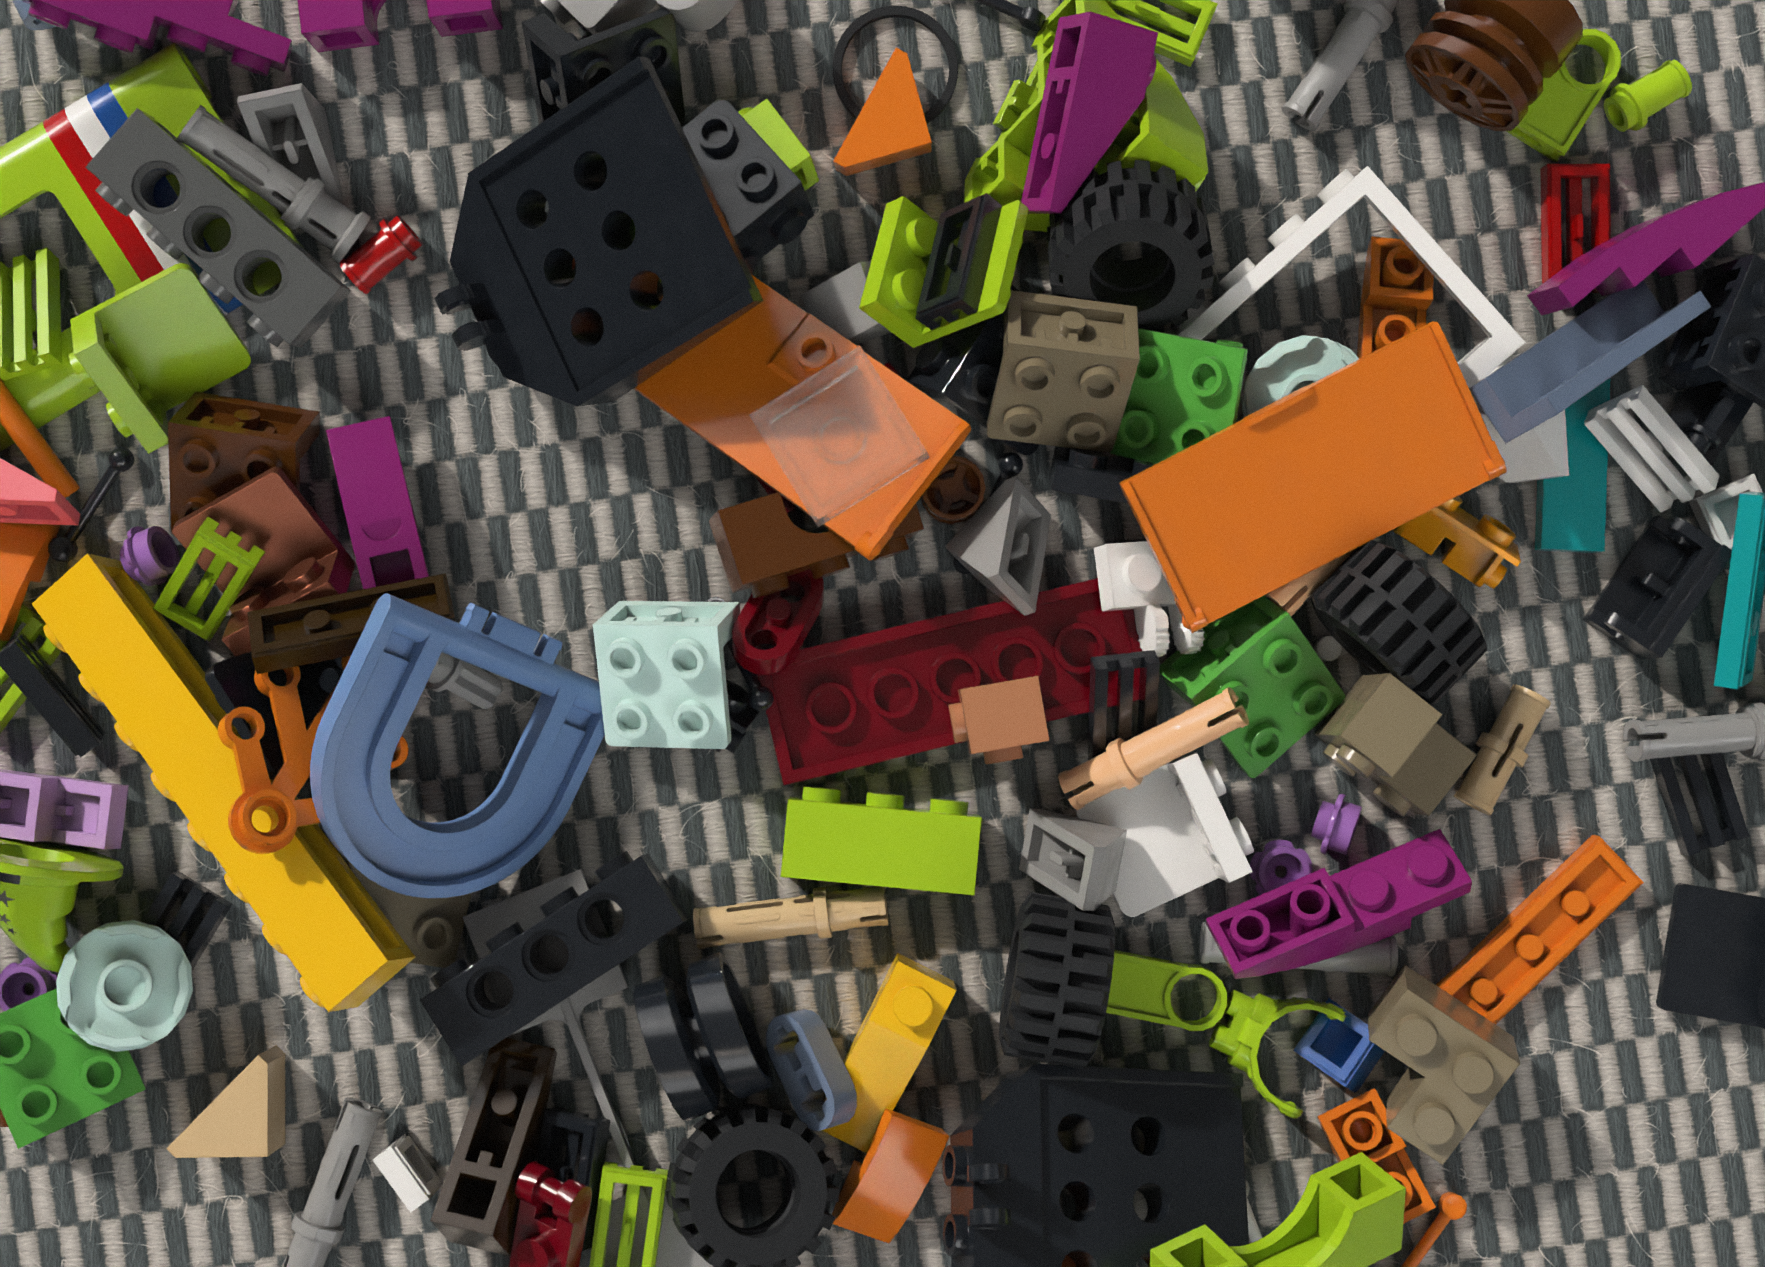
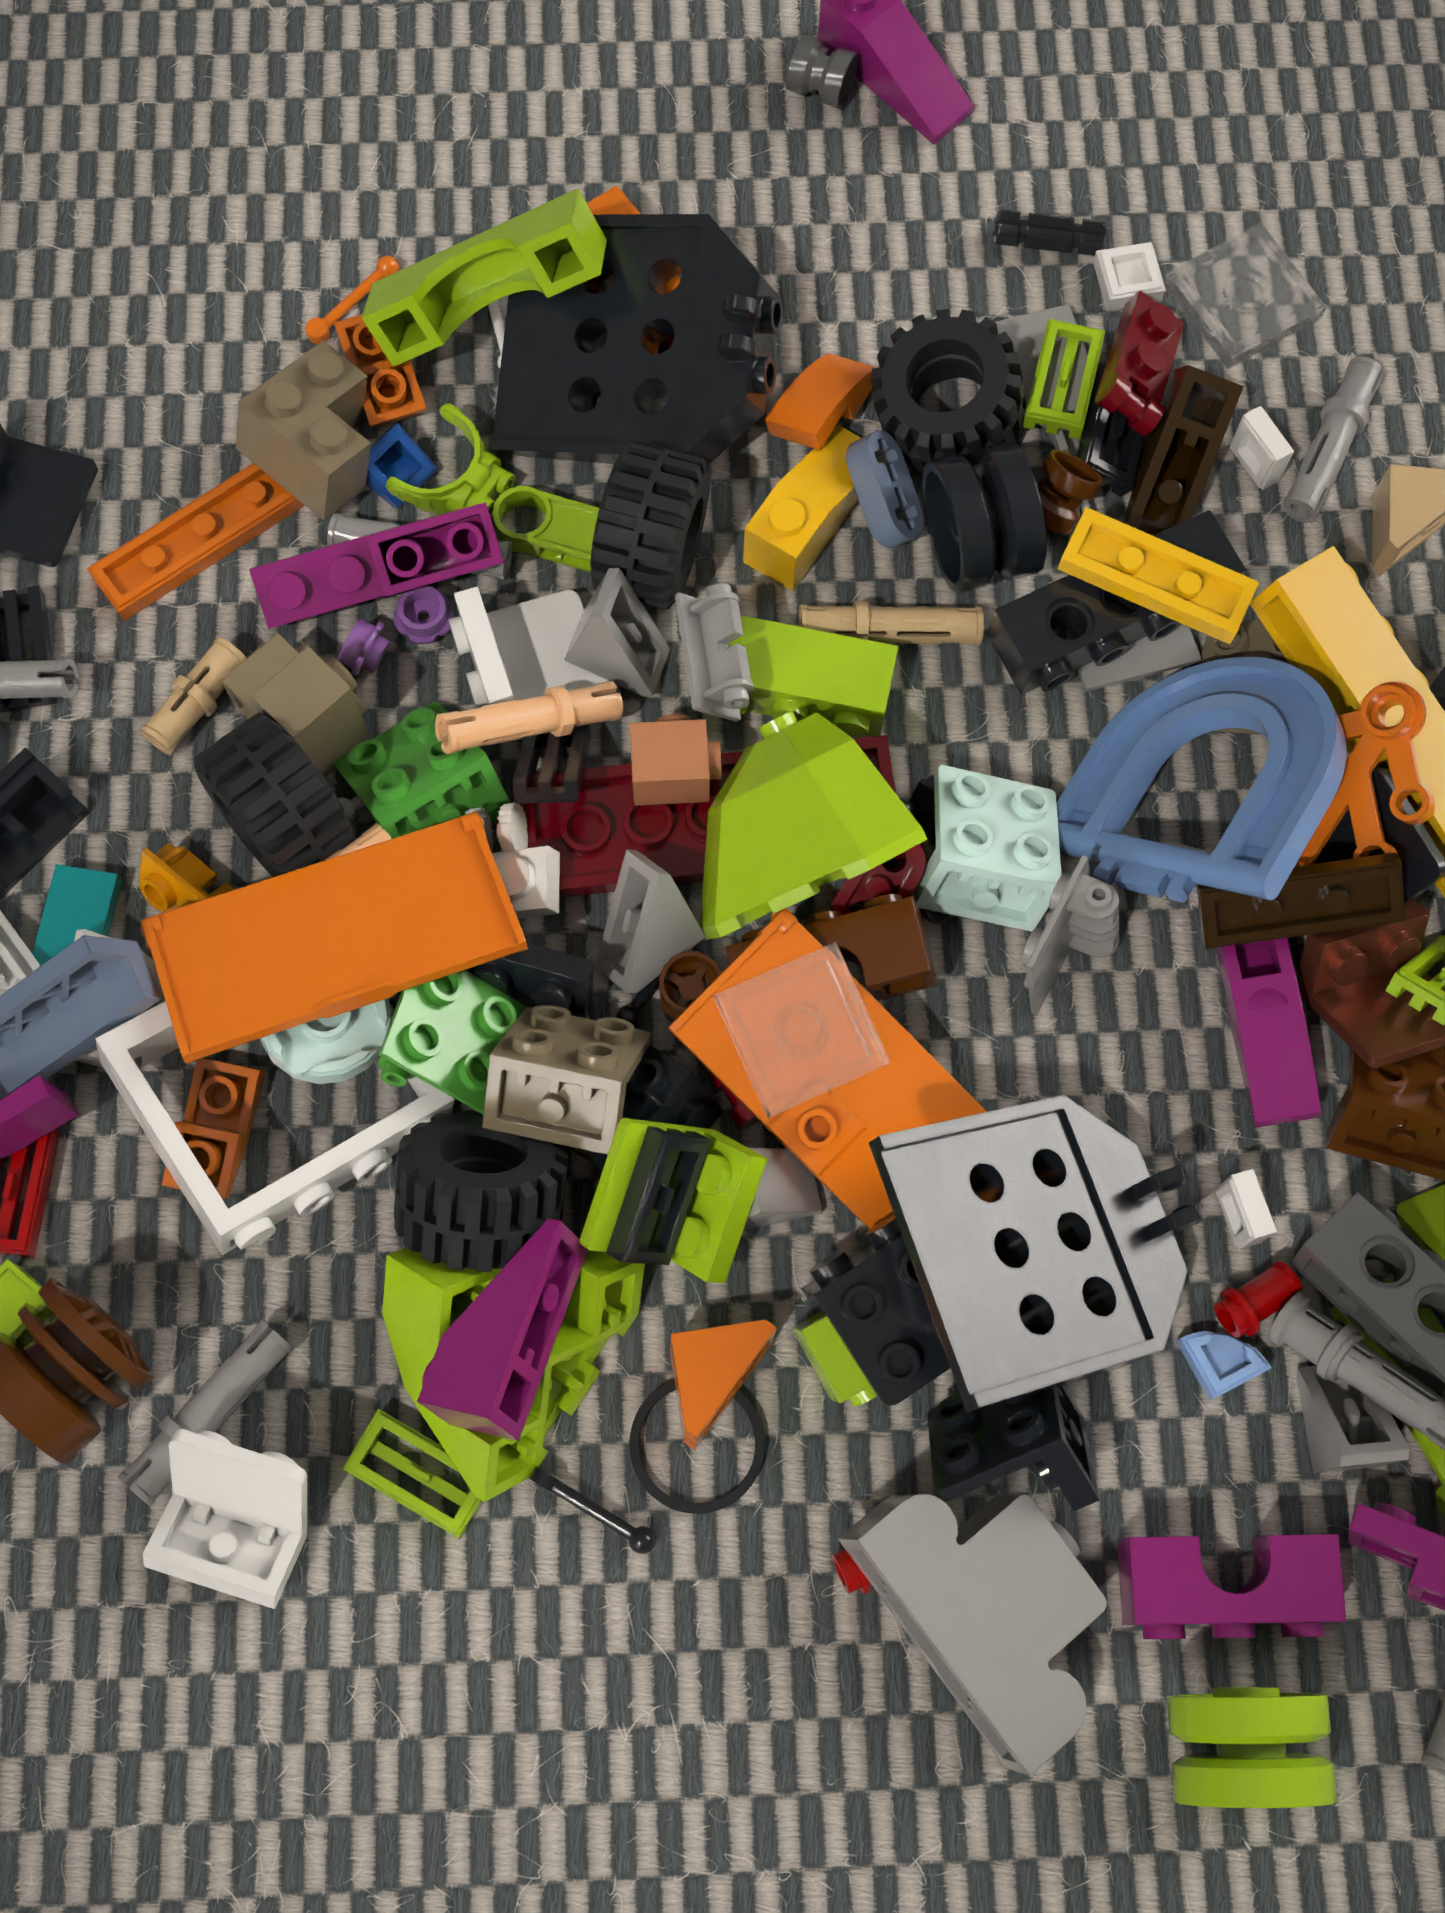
camera: 175 degrees left, 15 degrees down
(396, 335) = (1245, 1209): none -> white tile
(413, 196) = (1221, 1361): none -> light blue tile
(513, 970) = (1158, 575): none -> yellow plate
(581, 604) = (1082, 919): none -> light grey hinge
(618, 1091) = (1063, 489): none -> reddish brown wheel
(865, 644) = (794, 817): none -> lime brick
(969, 810) = (715, 673): none -> light grey hinge

